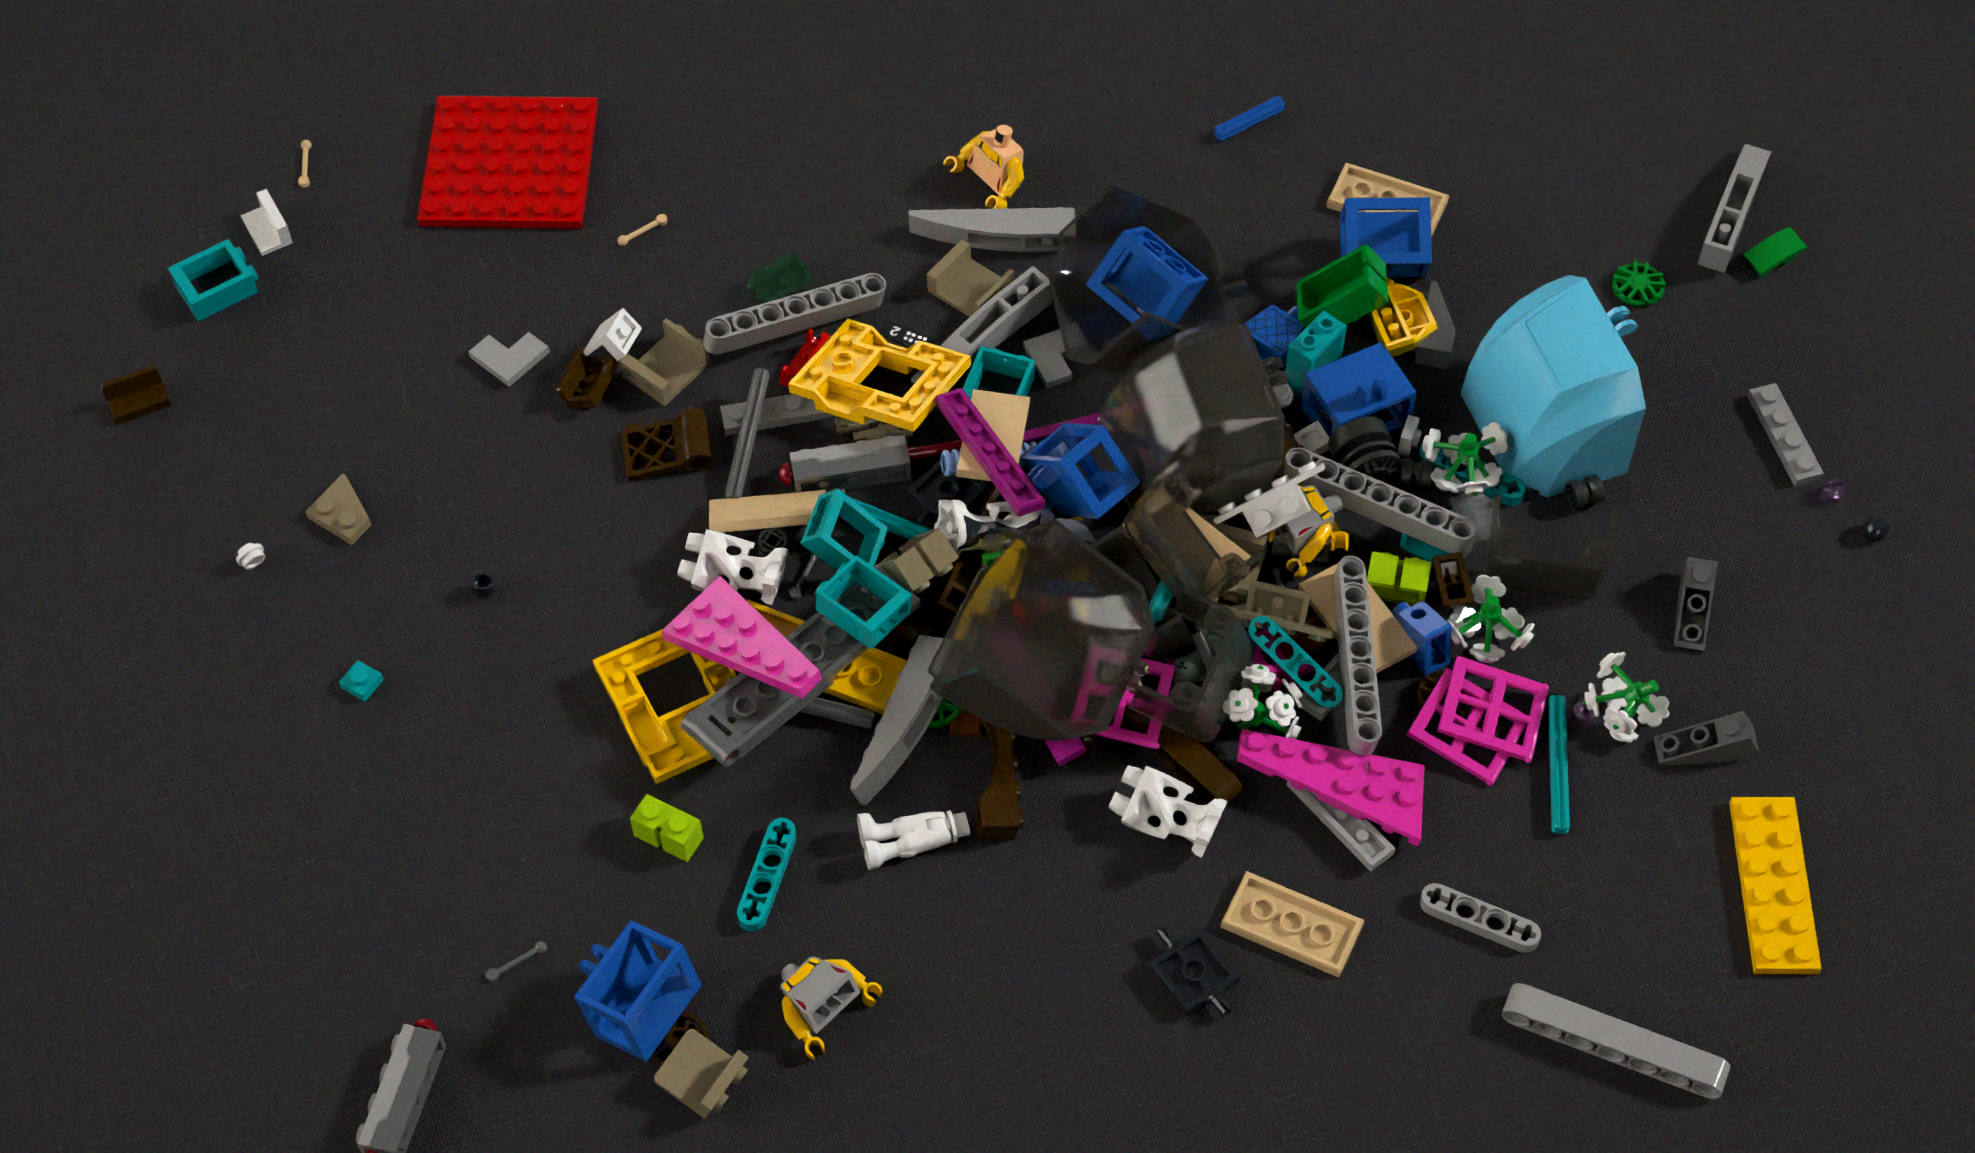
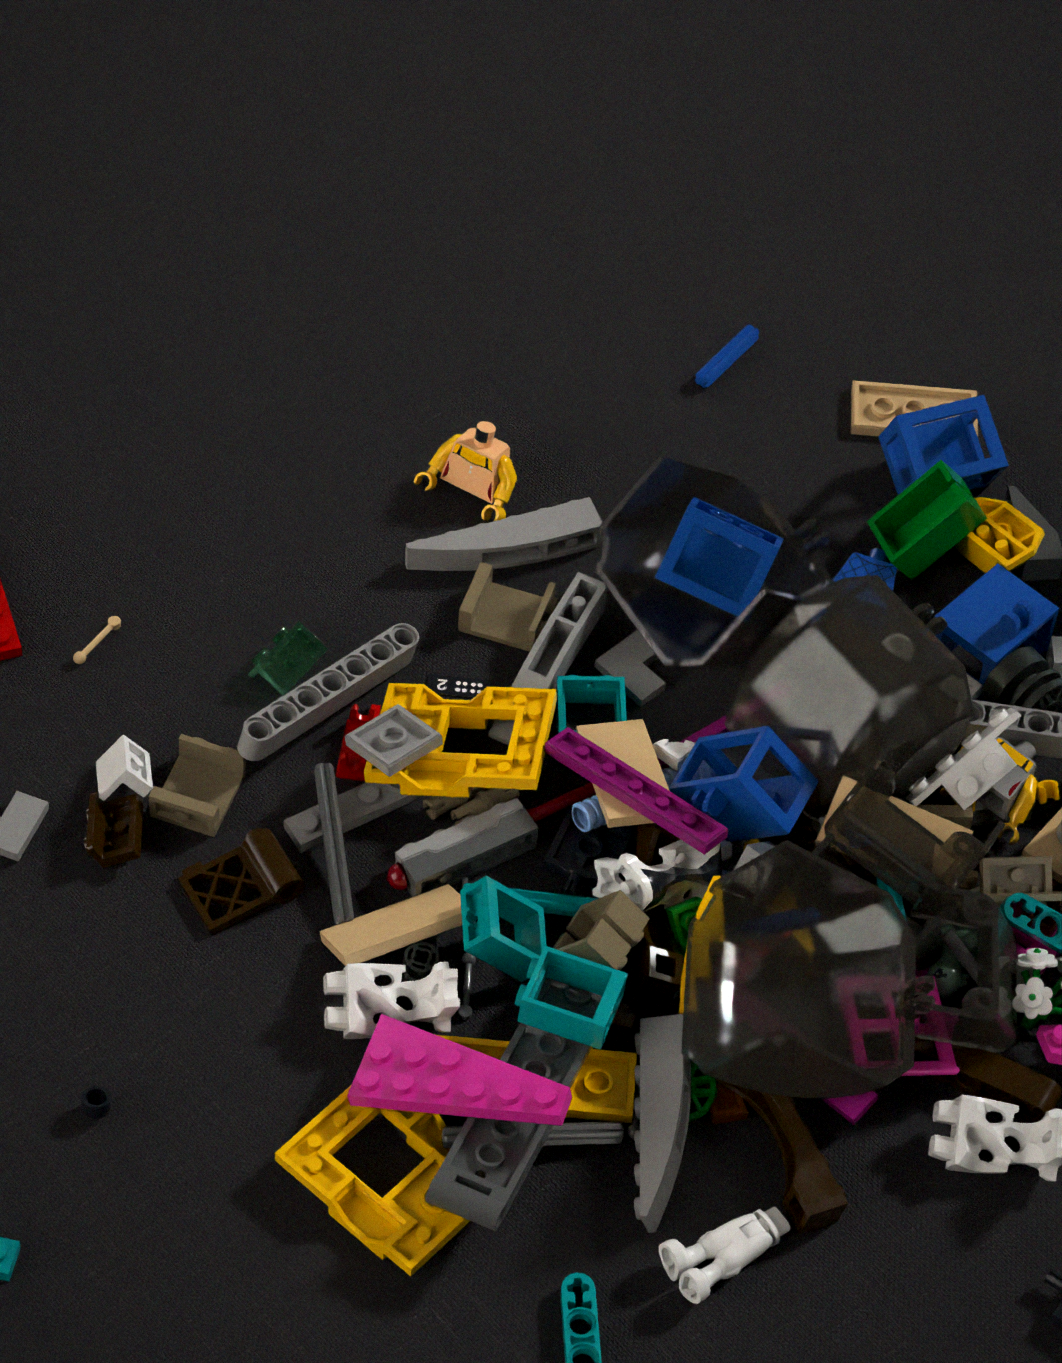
camera: 25 degrees left, 5 degrees down
(679, 830) = (462, 1316): lime piece -> none
(823, 364) = (393, 740): none -> light grey tile
(1041, 429) = (673, 752): none -> white tile
(1314, 350) = (931, 579): teal window -> none

